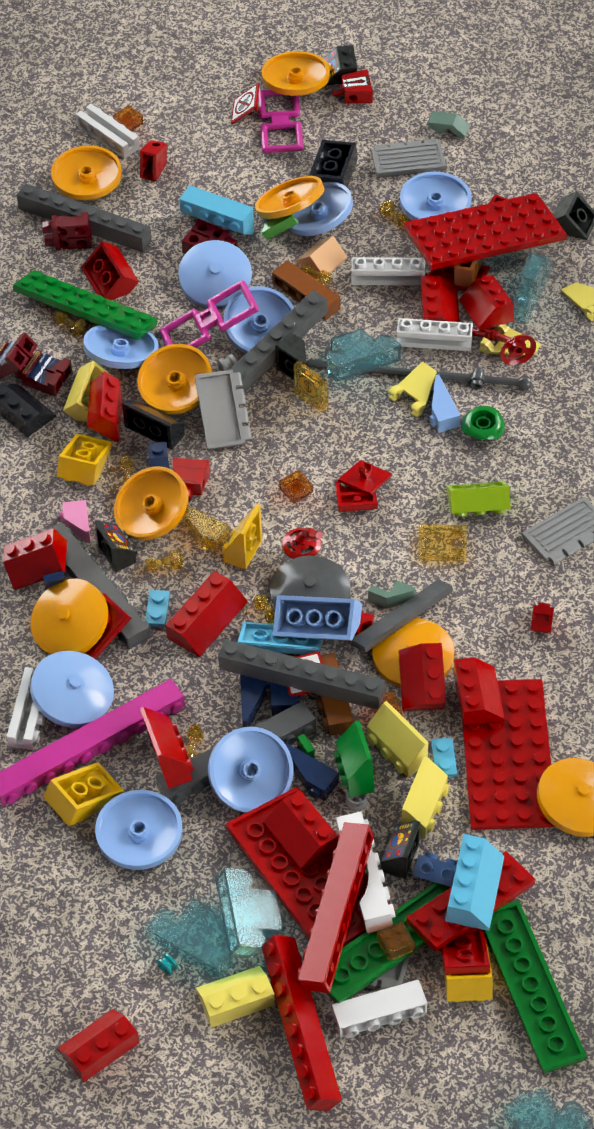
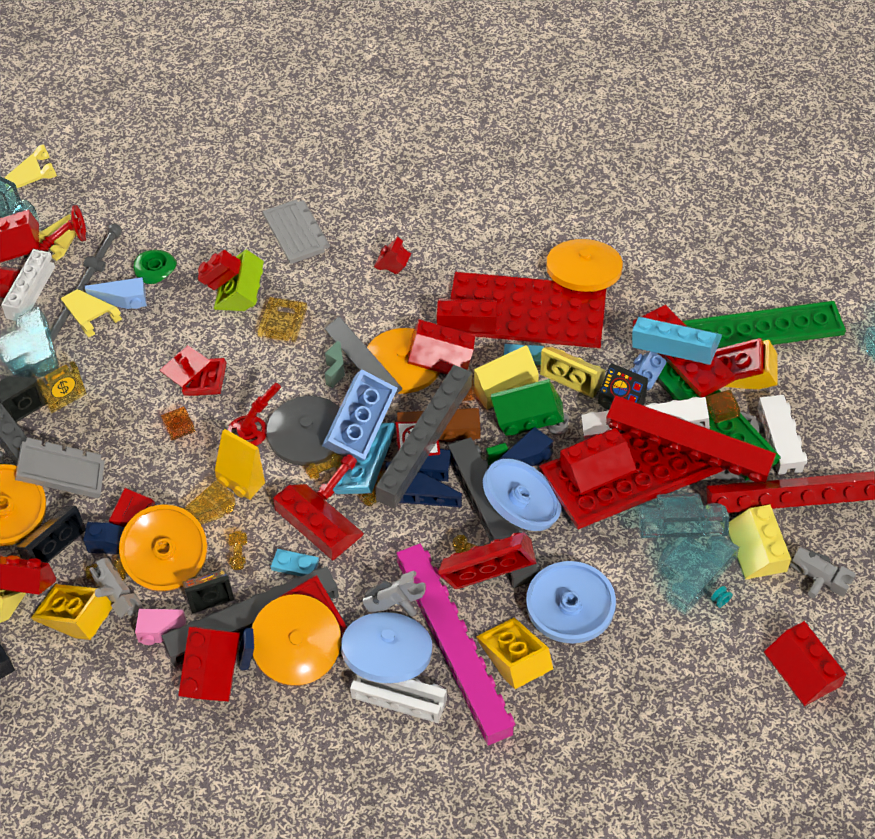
camera: 80 degrees left, 0 degrees up
(105, 478) = (114, 588): none -> light grey piece
(124, 683) = (398, 592): none -> light grey piece
(209, 1057) = (822, 572): none -> light grey piece
(237, 614) = (326, 490): none -> red bar
(482, 472) = (218, 269): none -> red brick

